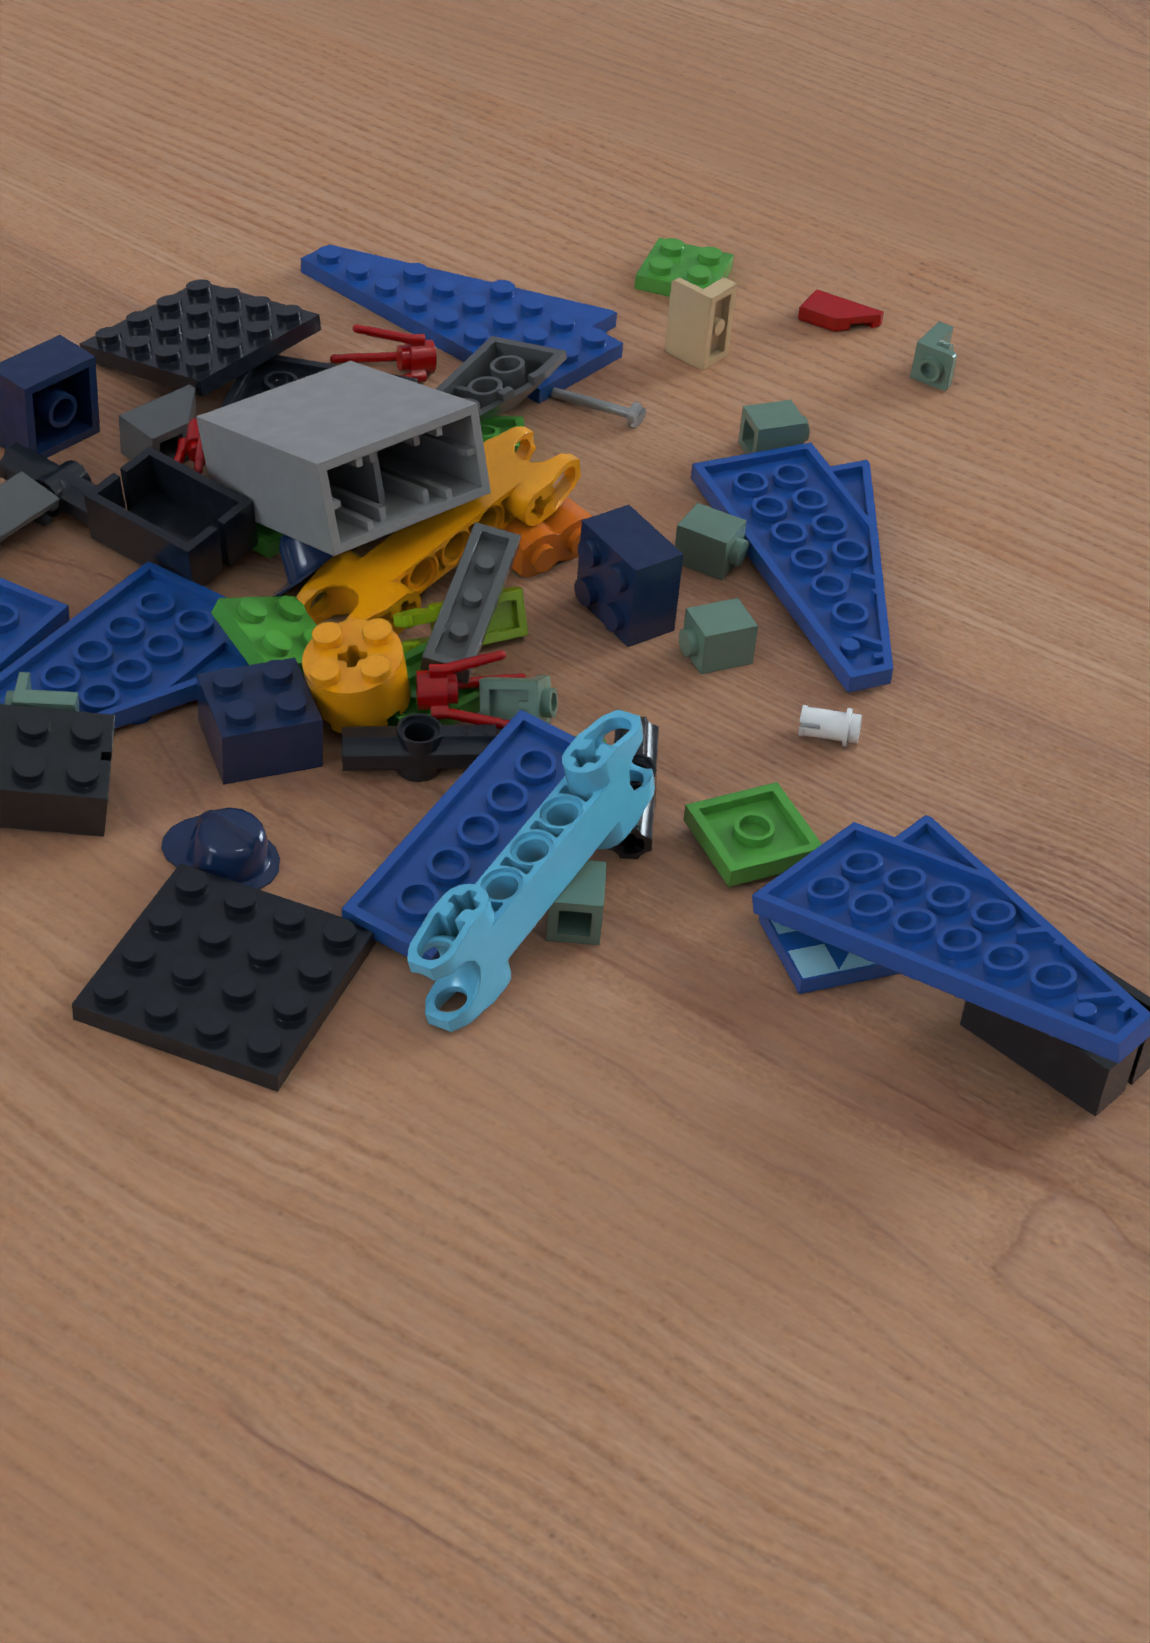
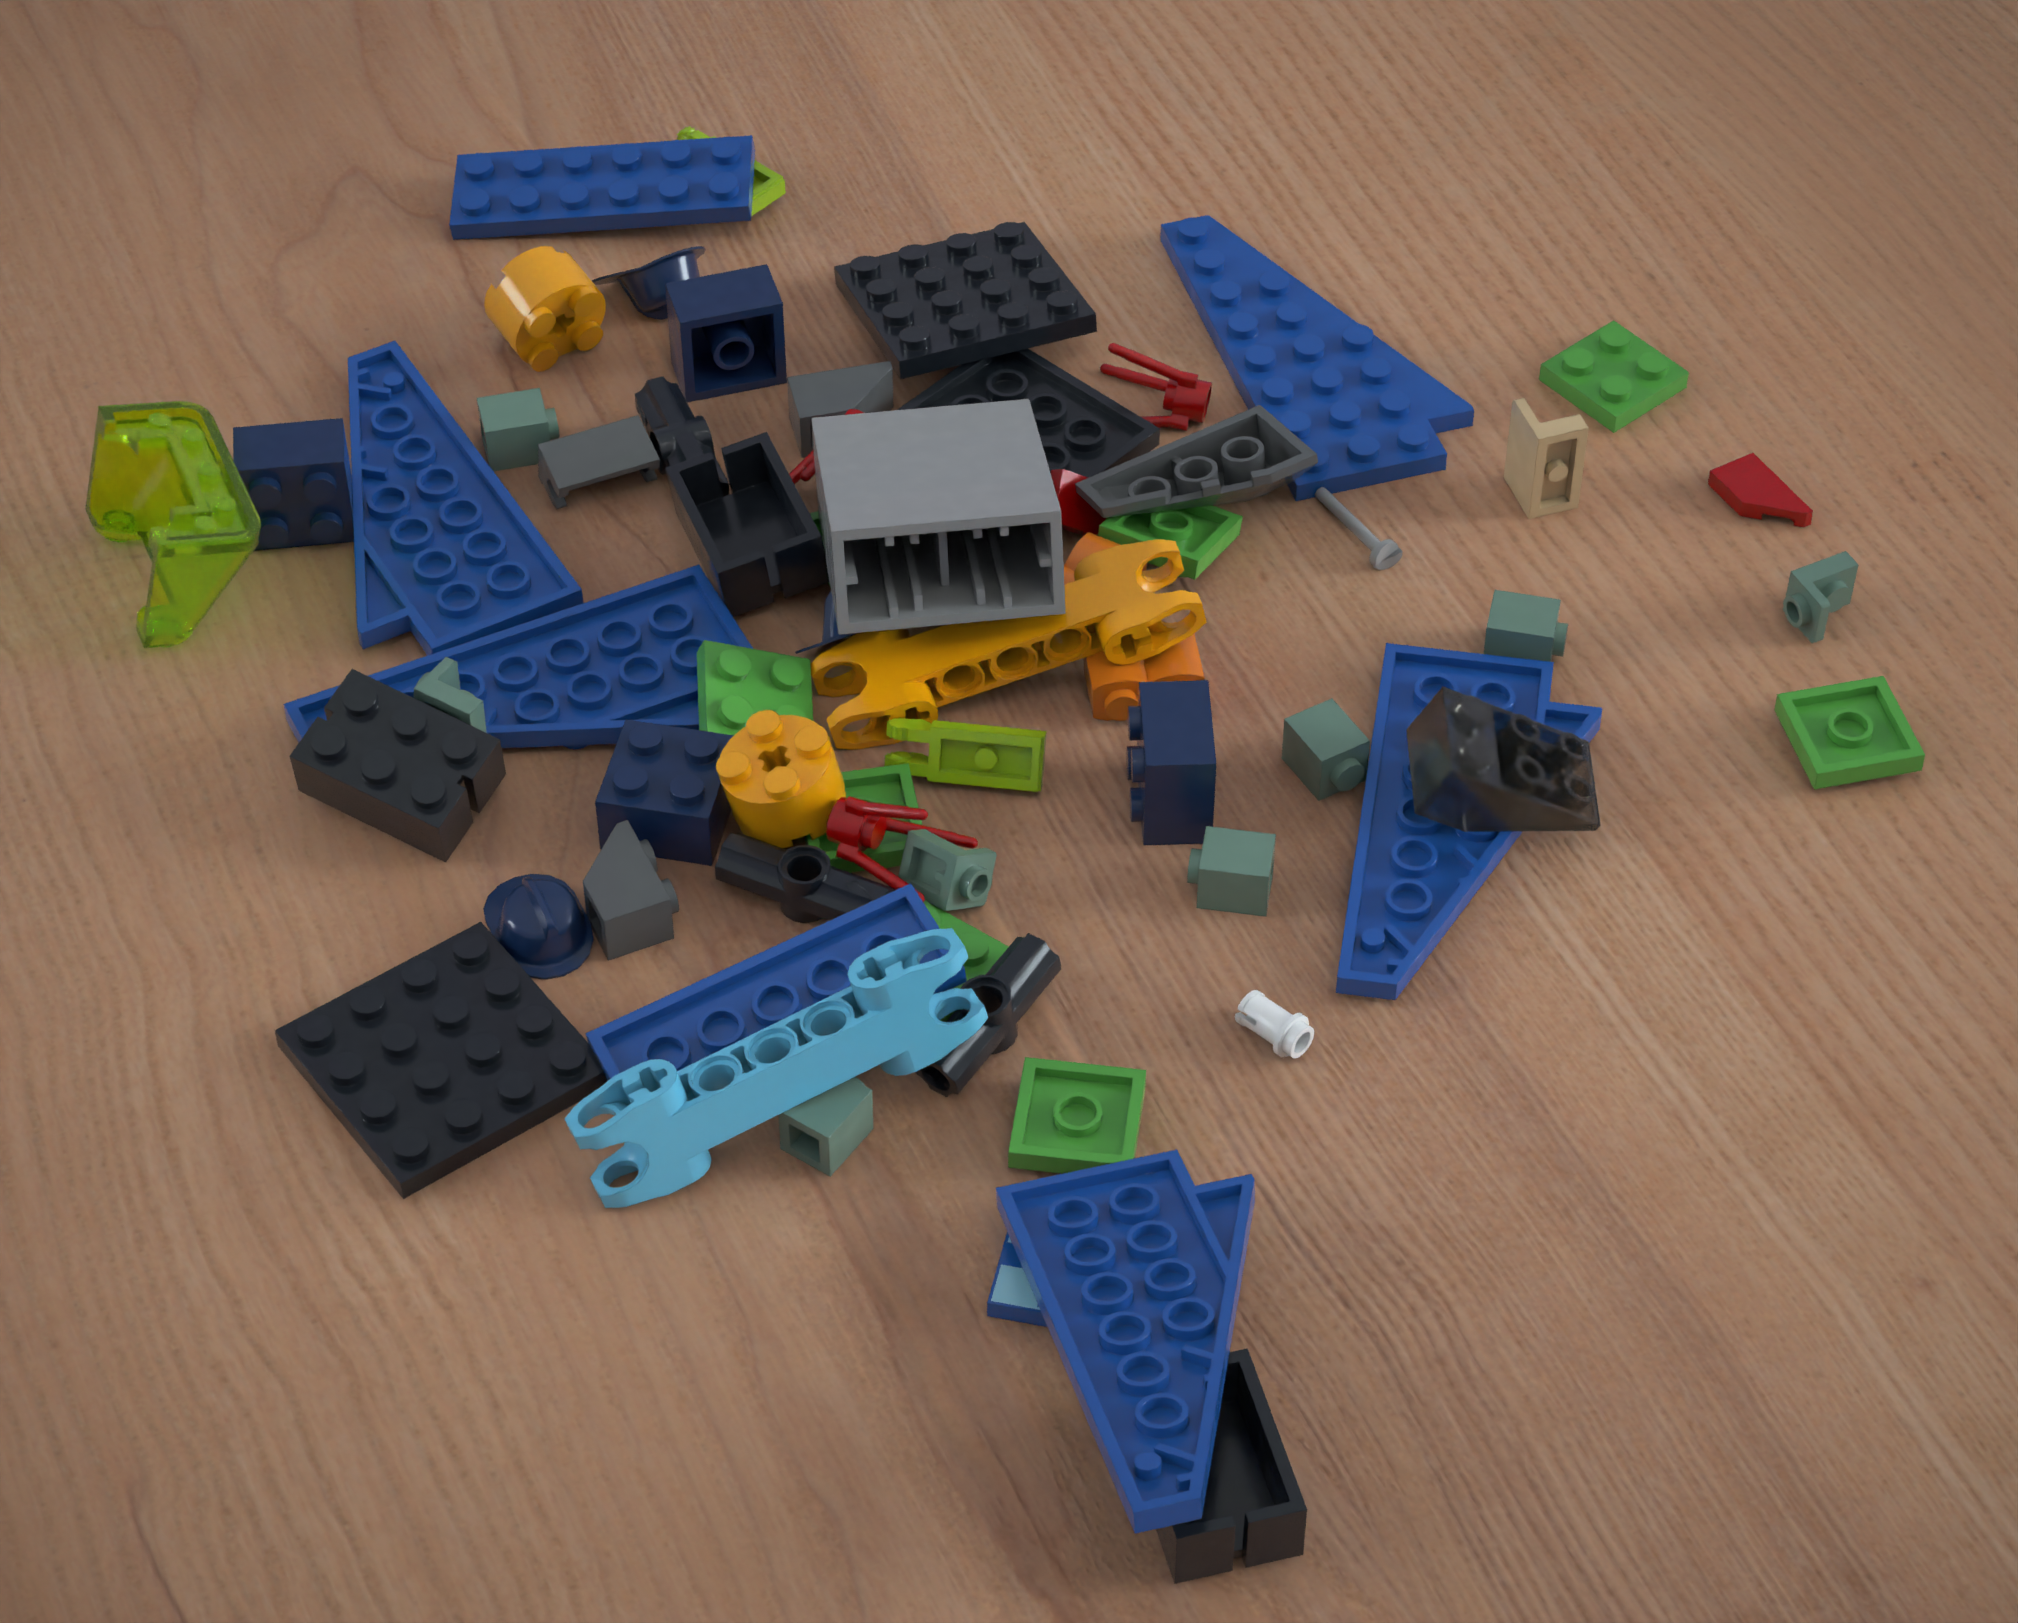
camera: 35 degrees right, 5 degrees up
(289, 802) = (626, 897): none -> dark grey slope
(472, 598) = (964, 733): dark grey plate -> none
(845, 511) = (1498, 769): none -> clear smoke slope
(1024, 430) = (1849, 732): none -> bright green plate

